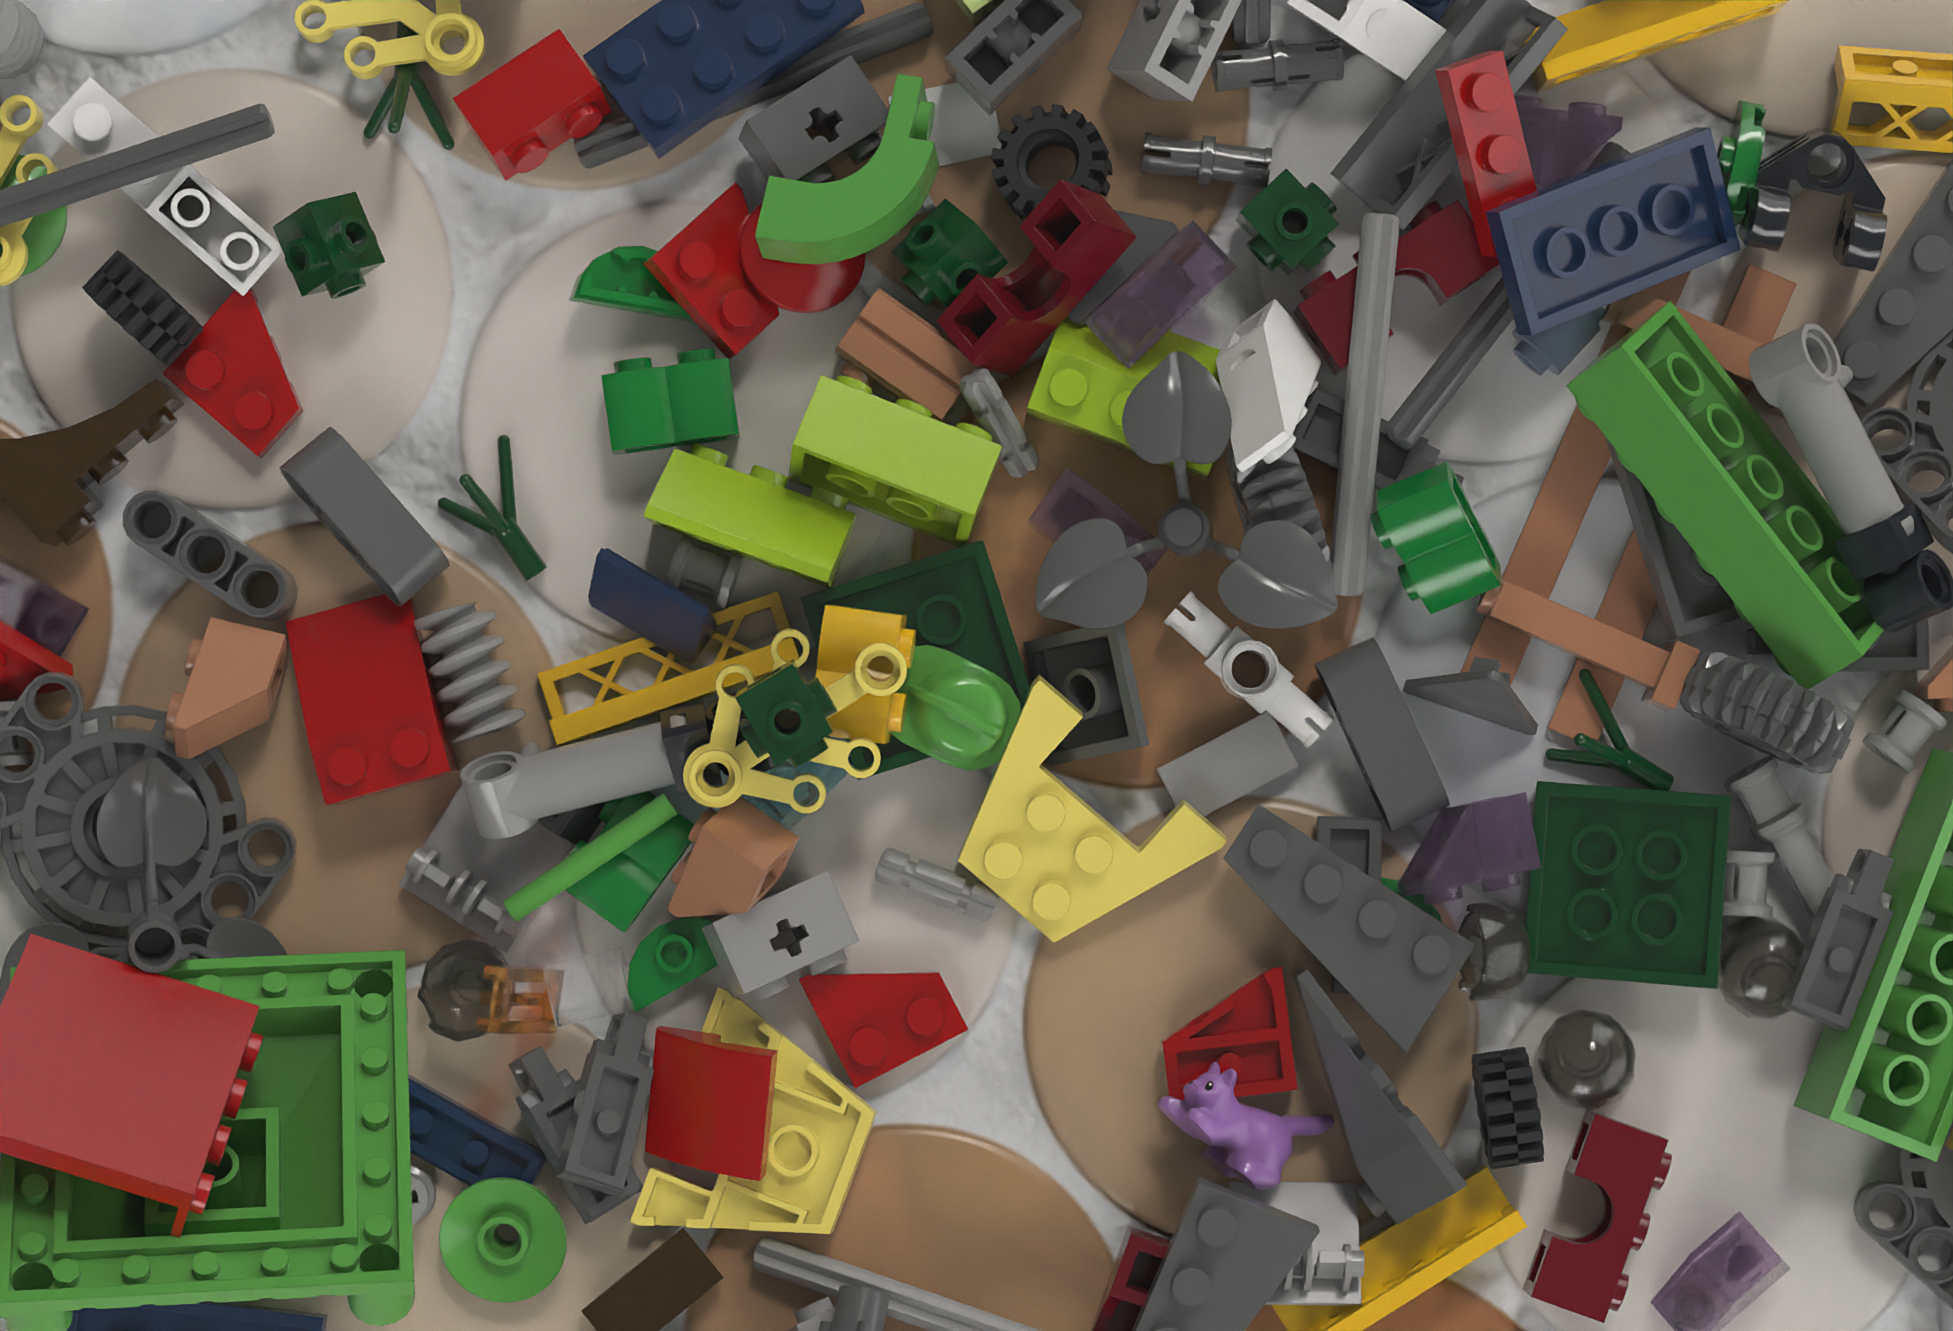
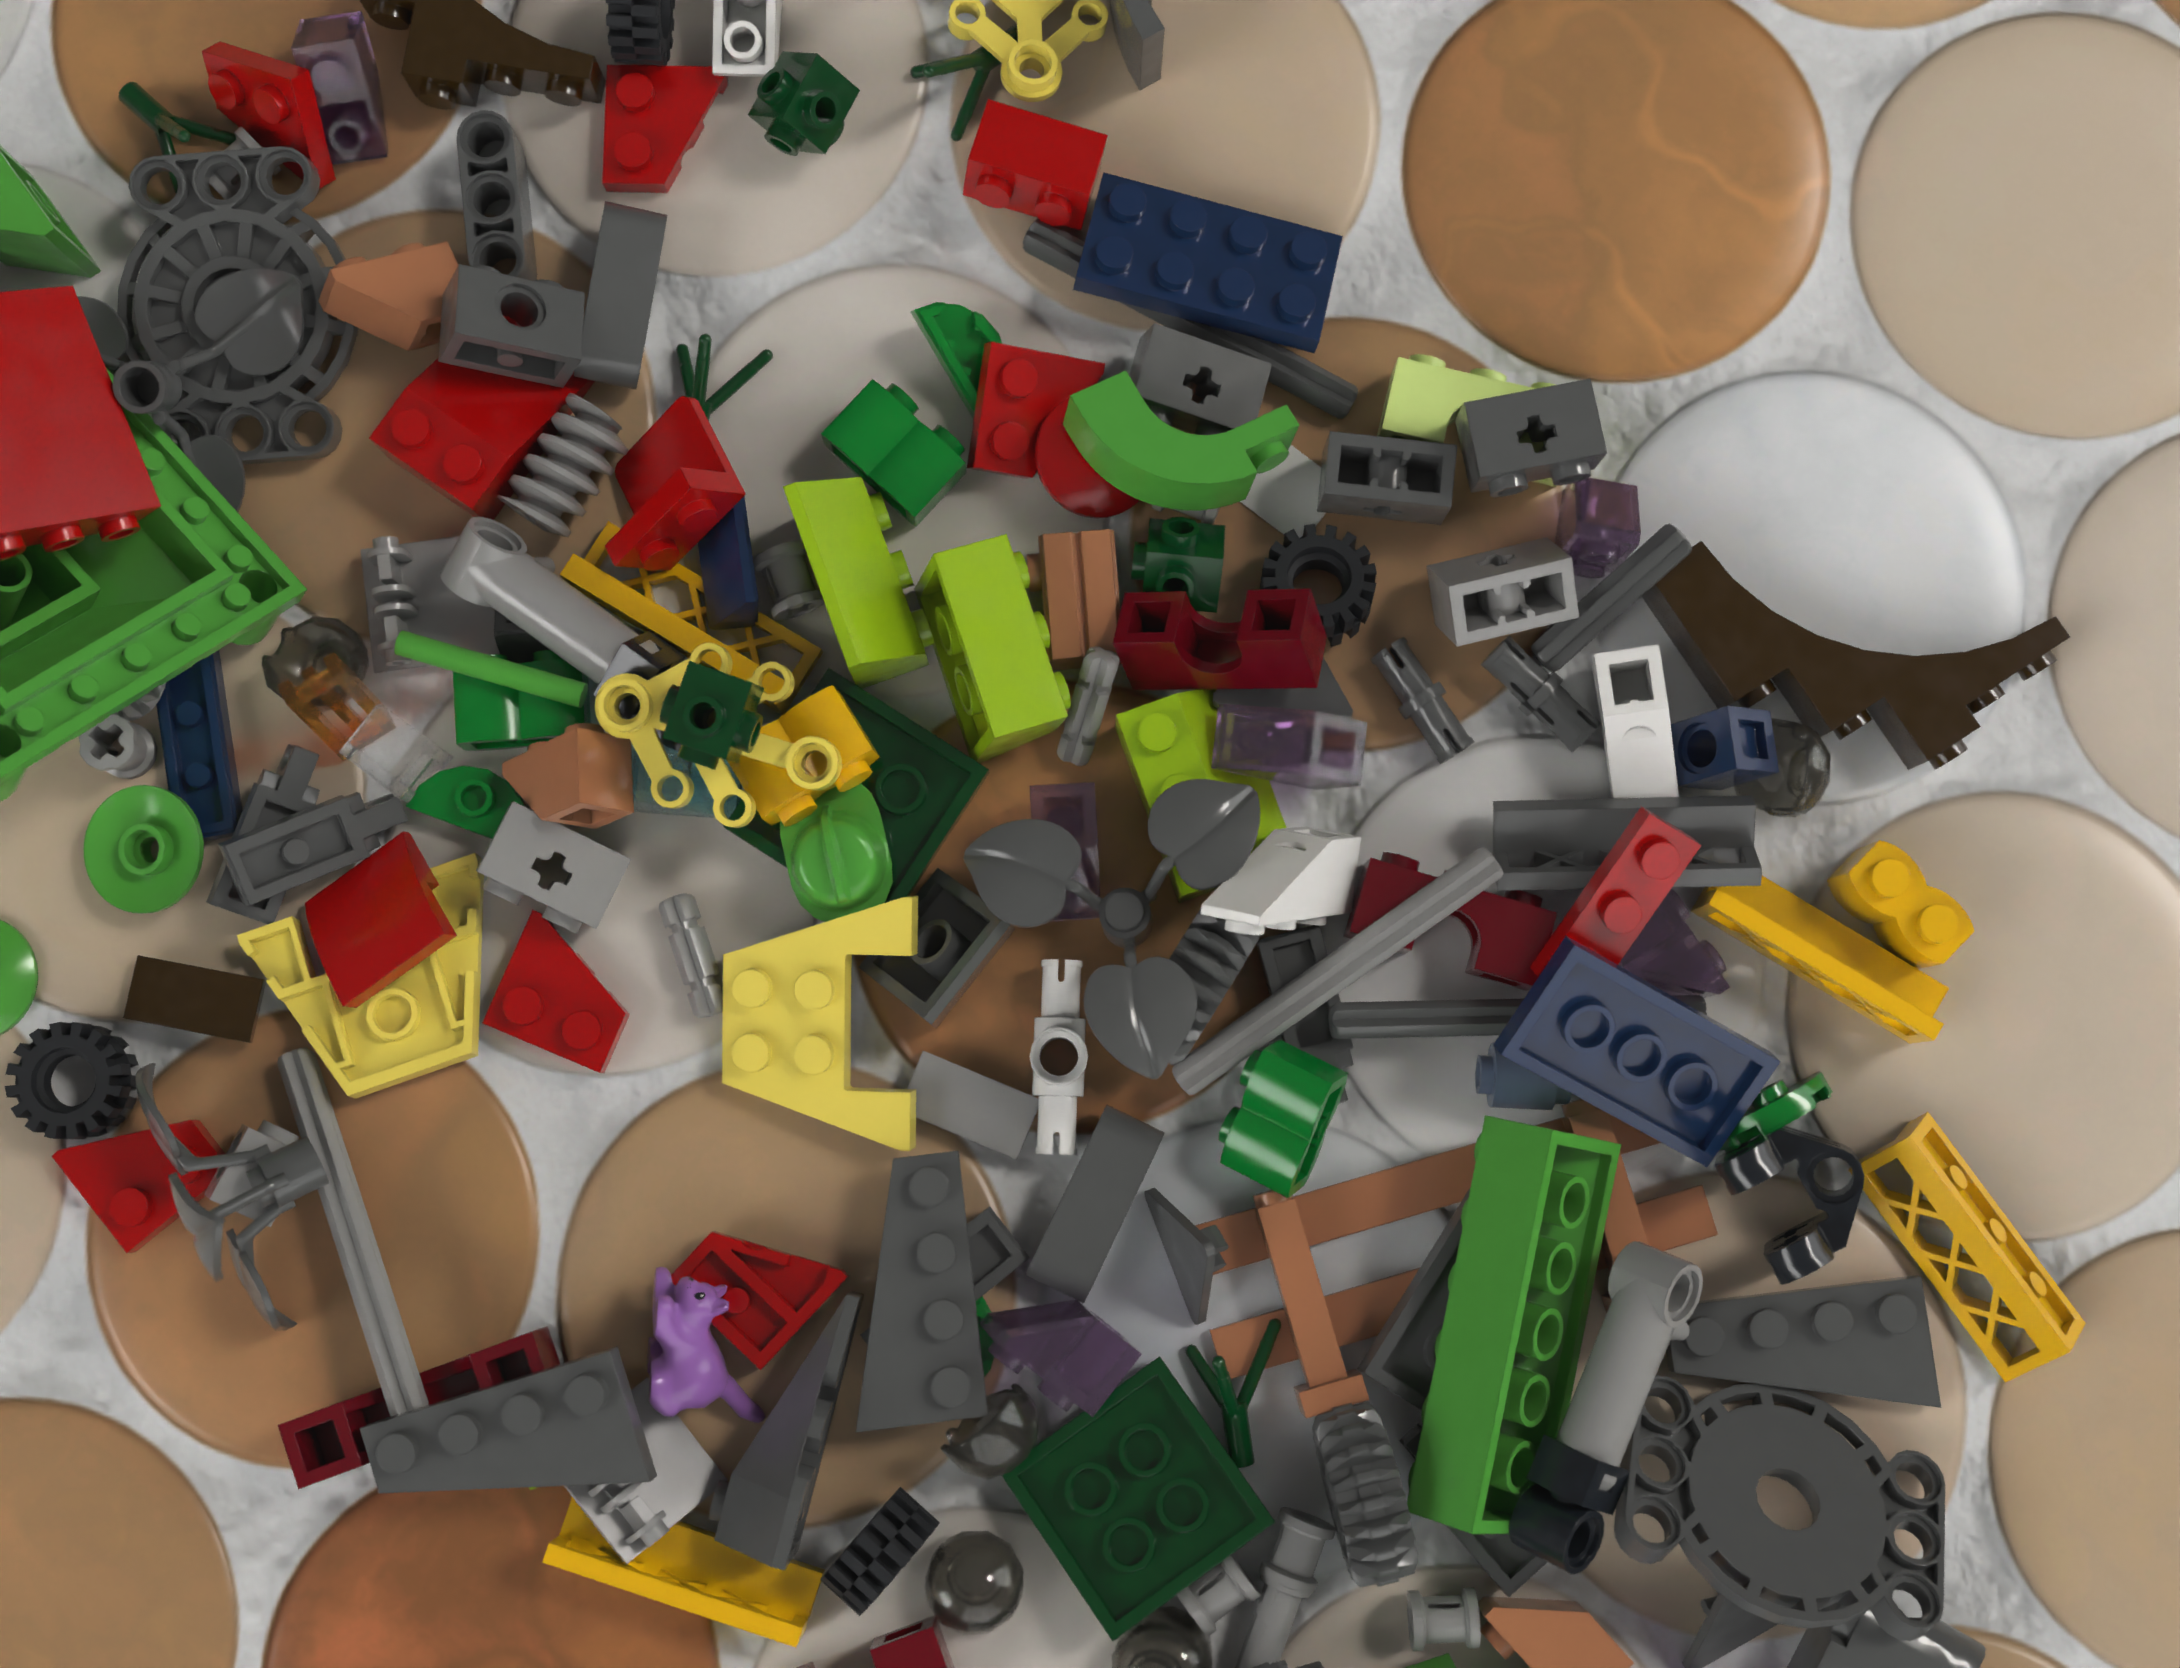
camera: 45 degrees right, 5 degrees down
(317, 652) = (481, 339): none -> dark grey brick
(559, 599) = (676, 488): none -> red bracket
(1283, 201) = (1437, 780): dark green brick -> none

